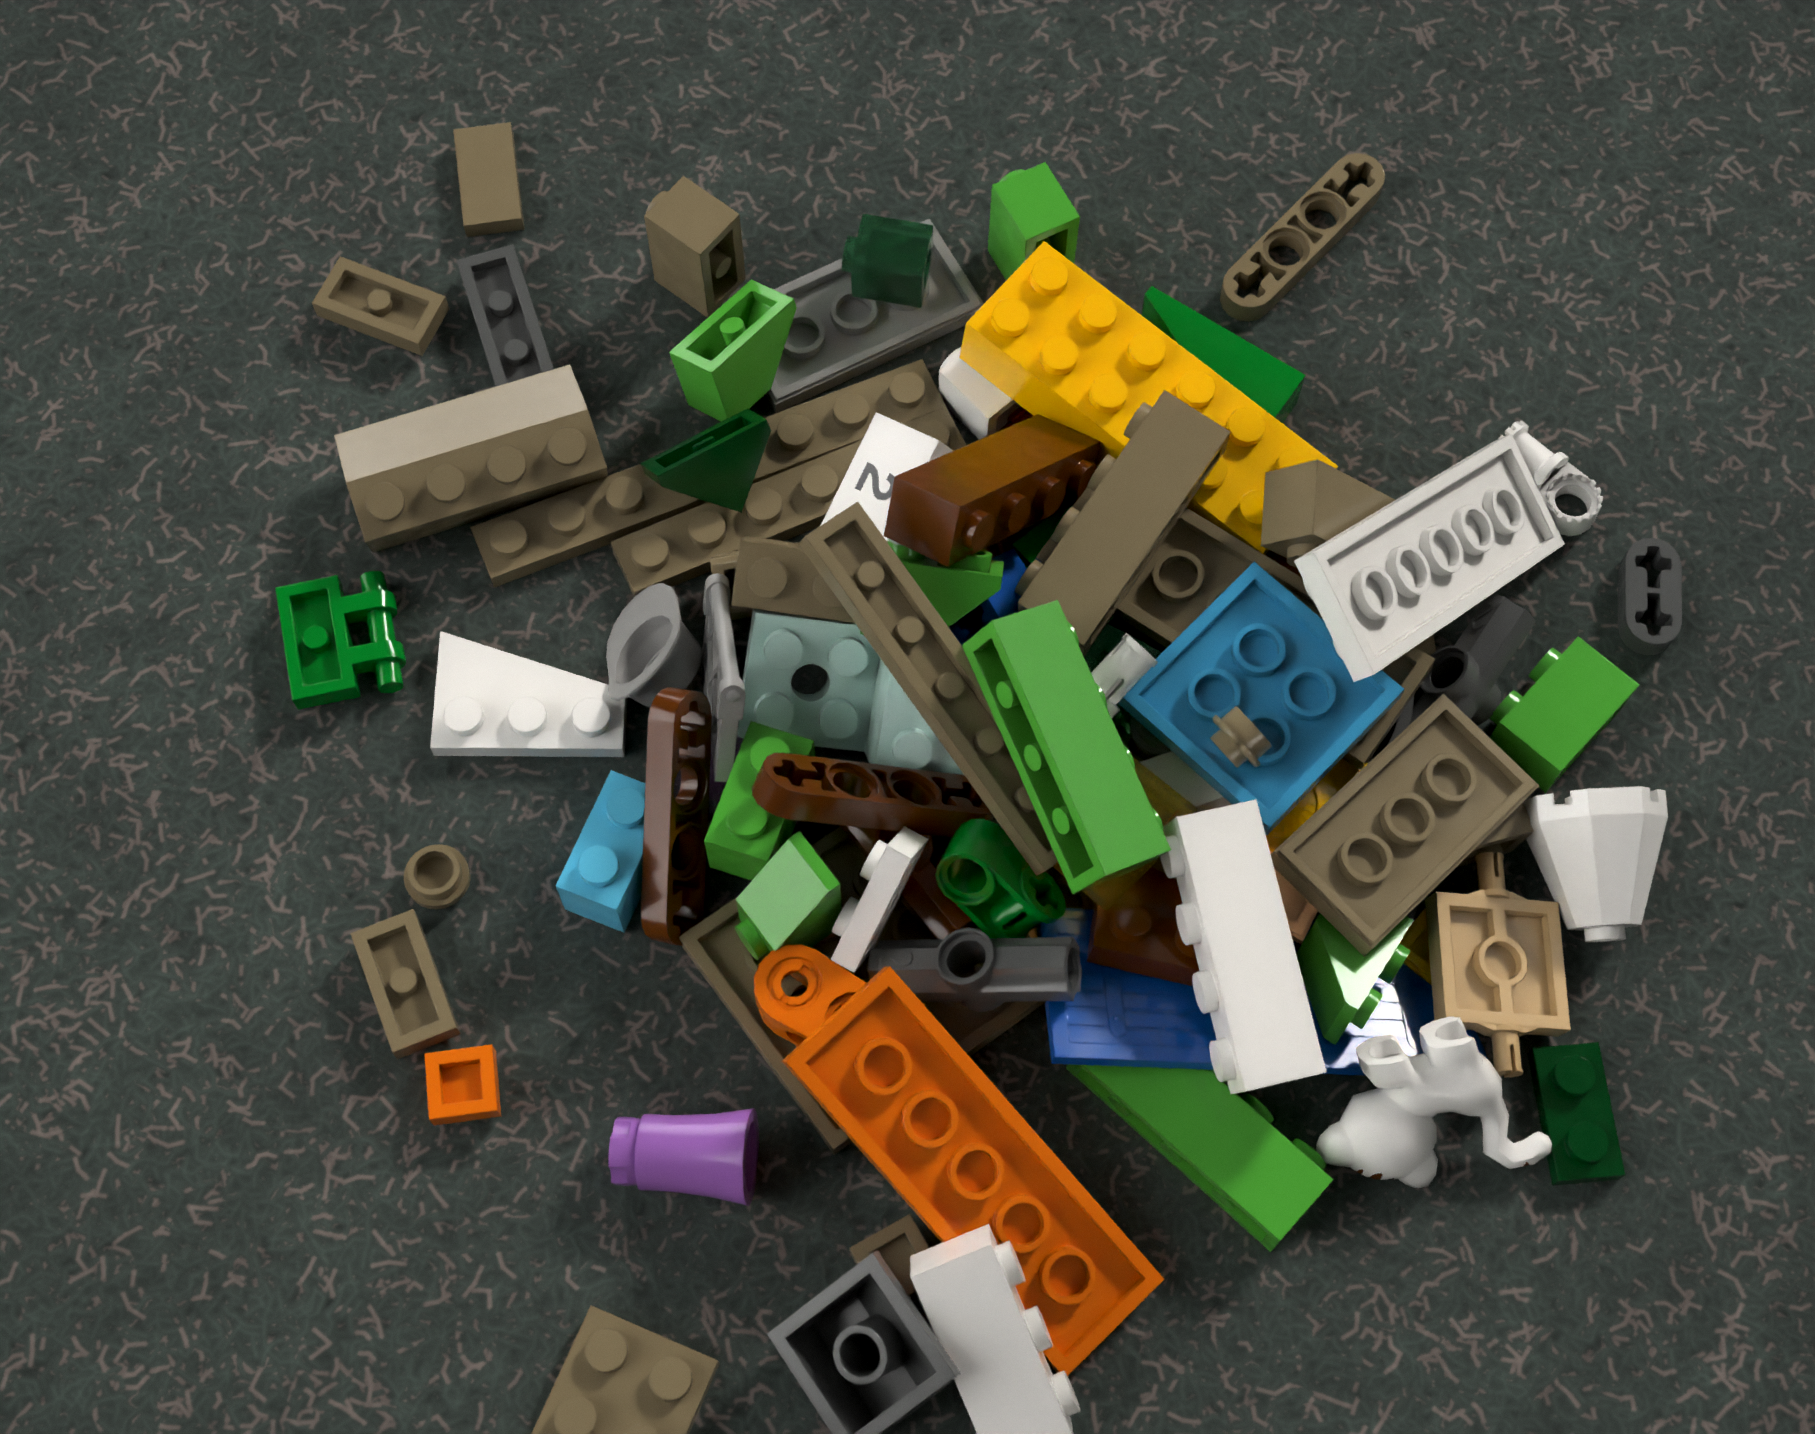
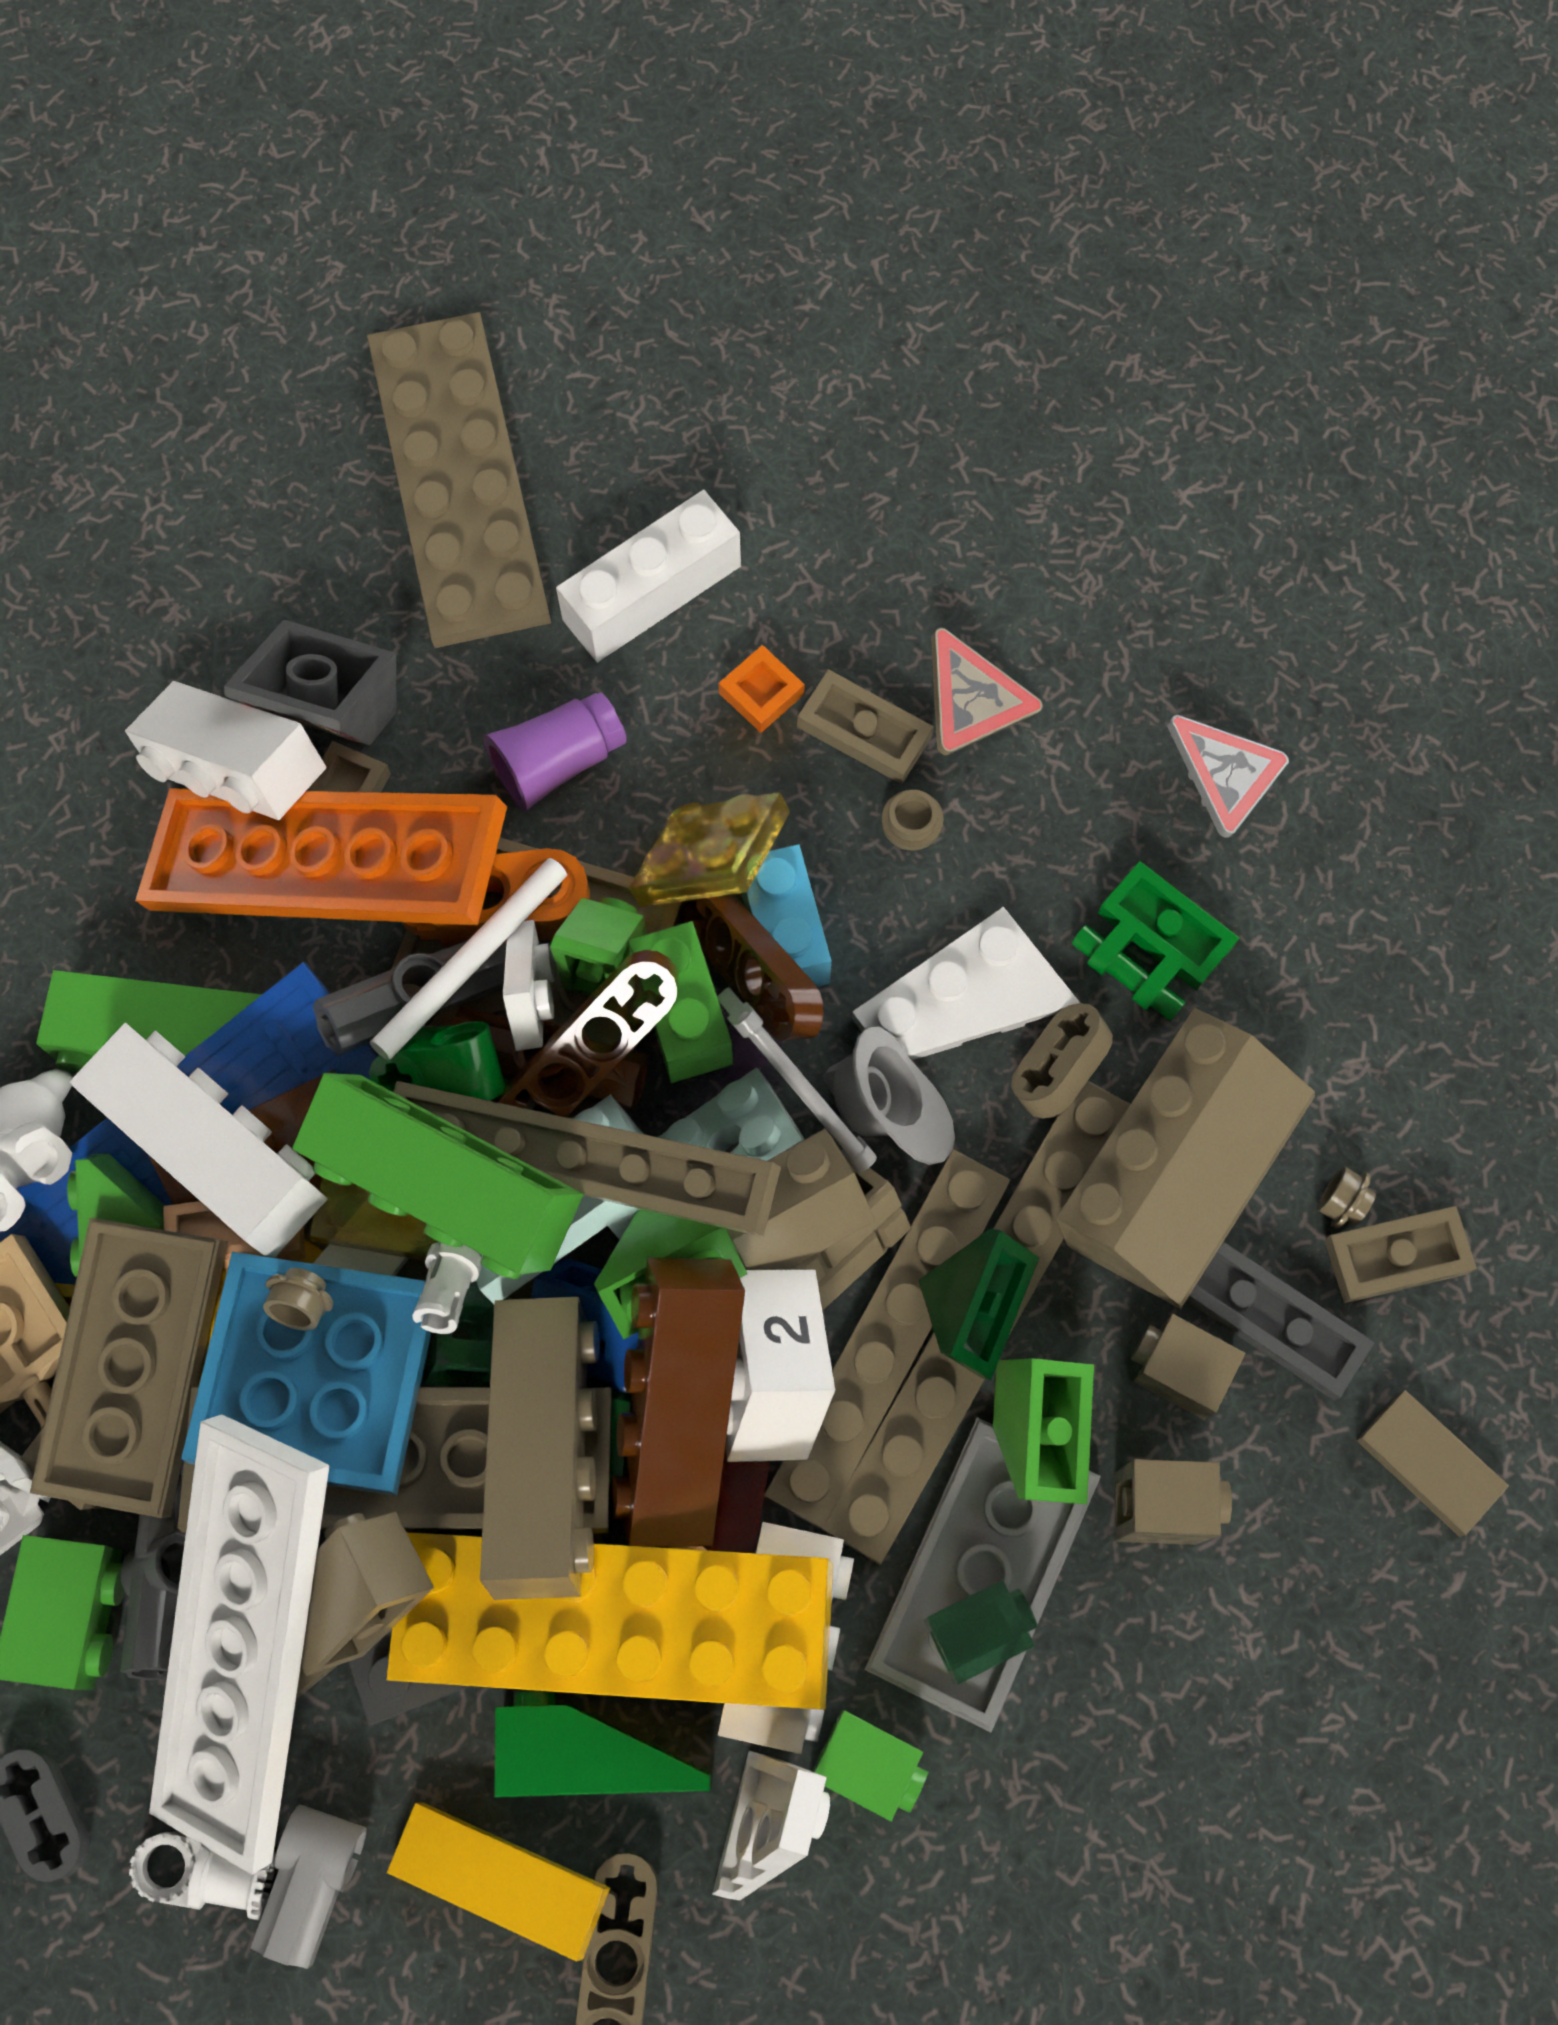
camera: 145 degrees right, 5 degrees up
(153, 723) = (1226, 770): none -> piece
(292, 937) = (973, 695): none -> piece
(380, 367) = (1346, 1198): none -> dark tan plate
(470, 1263) = (650, 575): none -> white brick
(498, 611) = (1061, 1060): none -> dark tan beam
(599, 332) = (1186, 1365): none -> dark tan brick
(631, 938) = (710, 849): none -> clear yellow plate
(909, 944) = (468, 959): none -> white bar
(1121, 228) = (771, 1824): none -> white wing
(1335, 342) = (499, 1881): none -> yellow tile
(1460, 429) = (313, 1868): none -> light grey piece

